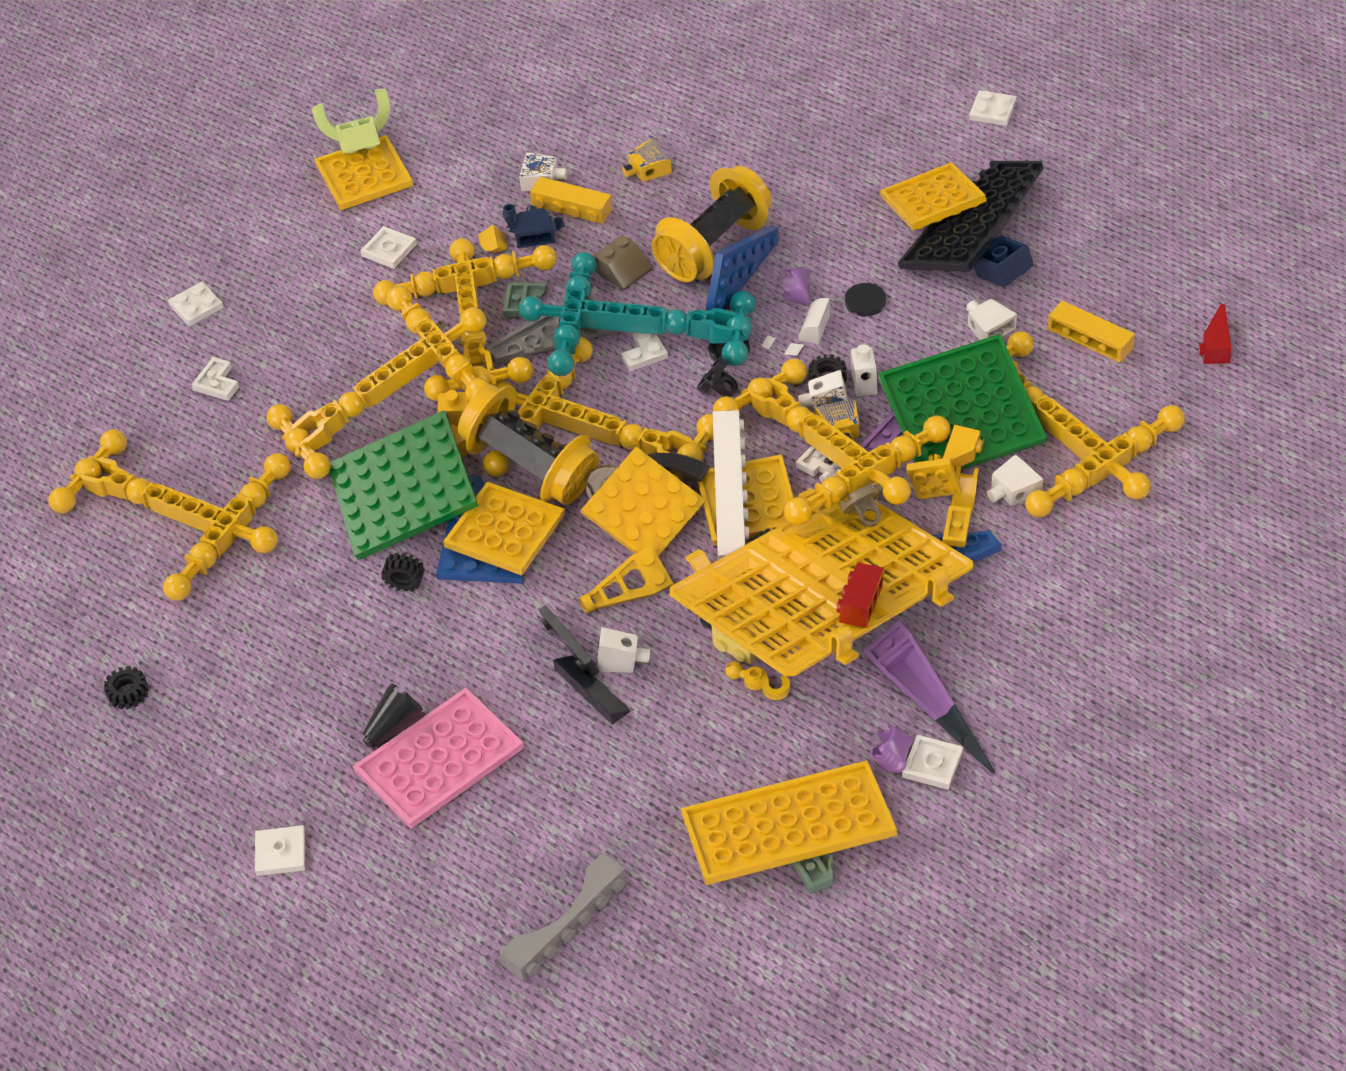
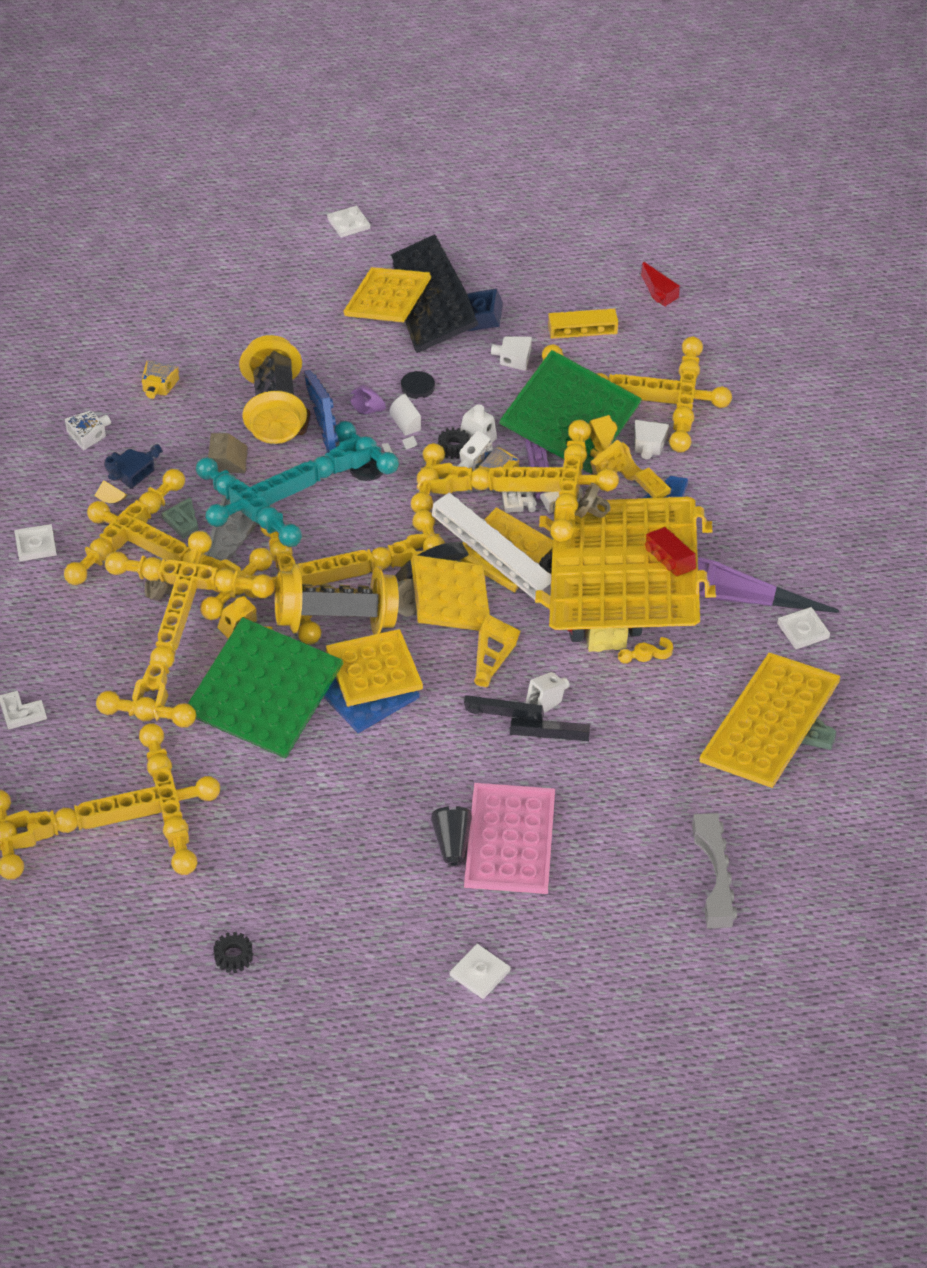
camera: 50 degrees left, 0 degrees up
(402, 572) = (339, 740): black tyre -> none
(571, 200) = (135, 434): yellow brick -> none
(648, 351) = (315, 500): white plate -> none
(716, 377) = (389, 487): black tile -> none
(893, 751) = (776, 636): medium lavender hair -> none

